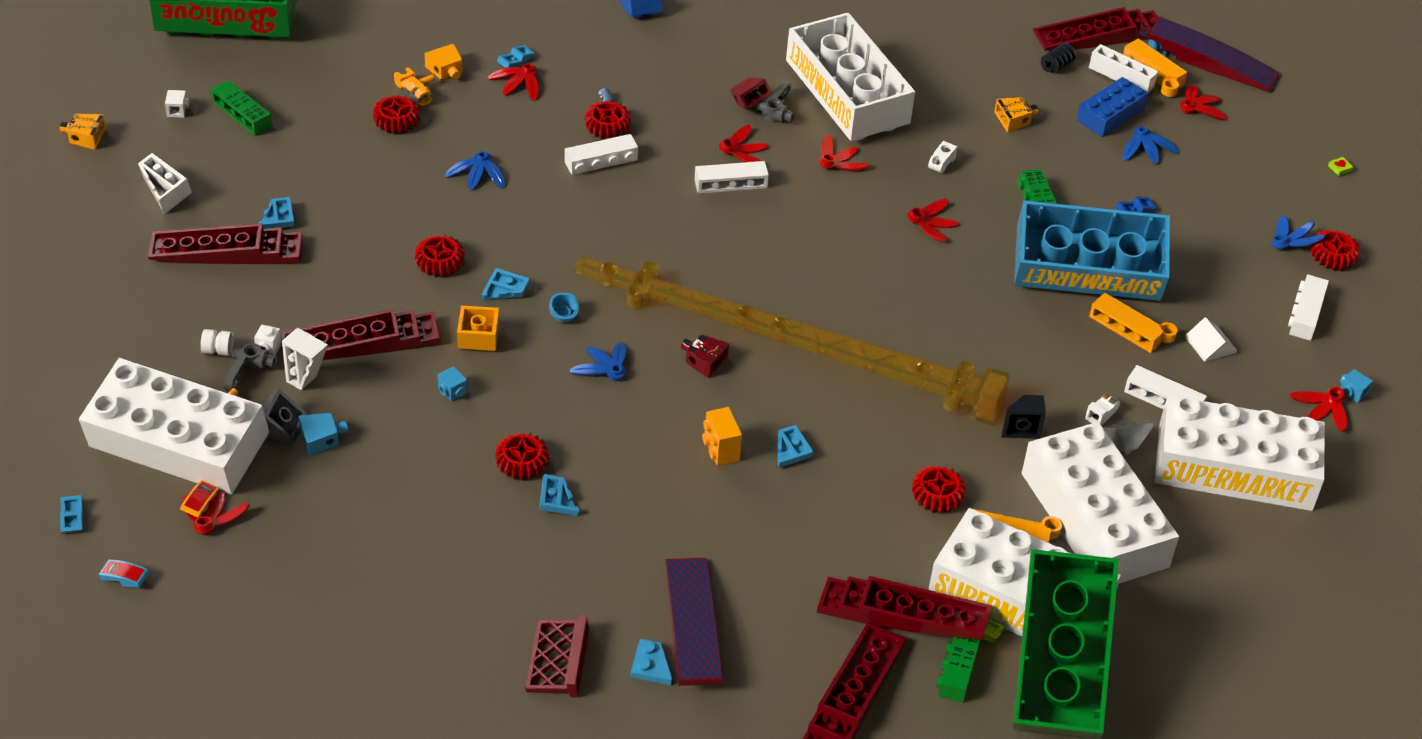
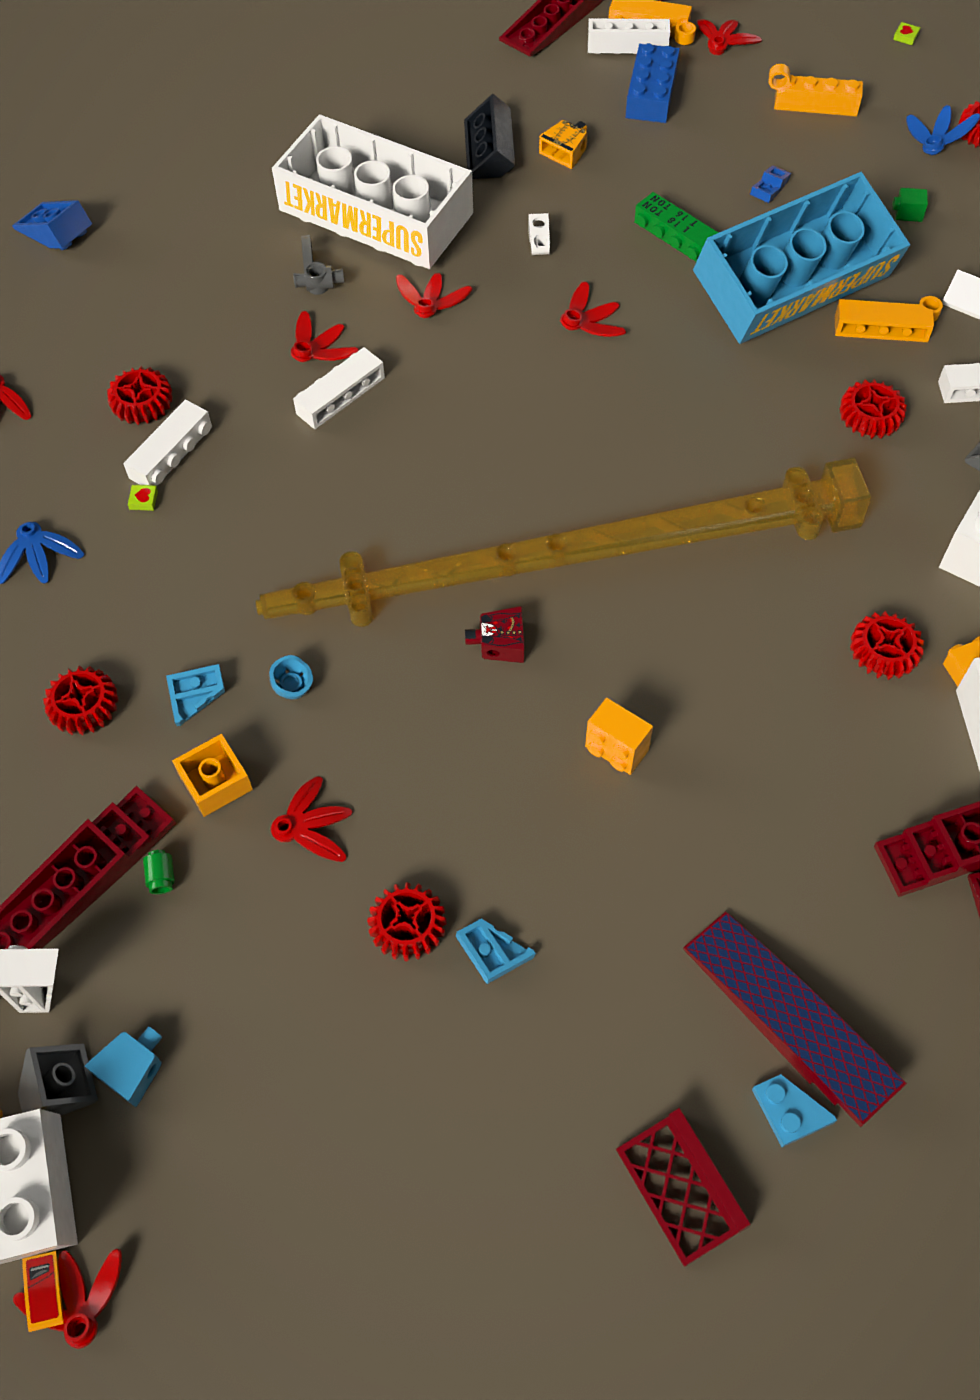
camera: 30 degrees left, 15 degrees up
(410, 358) = (158, 872): none -> green brick
(452, 383) = (241, 875): dark azure brick -> none
(508, 378) = (300, 822): none -> red plant
(562, 175) = (142, 497): none -> lime tile
(605, 94) = (109, 363): sand blue arm -> none
(611, 367) = (401, 721): blue plant -> none
(747, 92) = (276, 270): dark red torso -> none
(792, 446) = (692, 695): dark azure wing -> none
(964, 86) = (489, 139): none -> black slope
(1025, 418) = (902, 497): black slope -> none
(1058, 58) = (554, 56): black piece -> none
(1065, 365) = (867, 404): none -> red gear
(1104, 408) = (951, 435): white leg -> none
(1144, 135) = (707, 100): blue plant -> none
(1222, 267) = (910, 204): none -> green brick
(1223, 168) = (814, 93): none -> light orange hinge

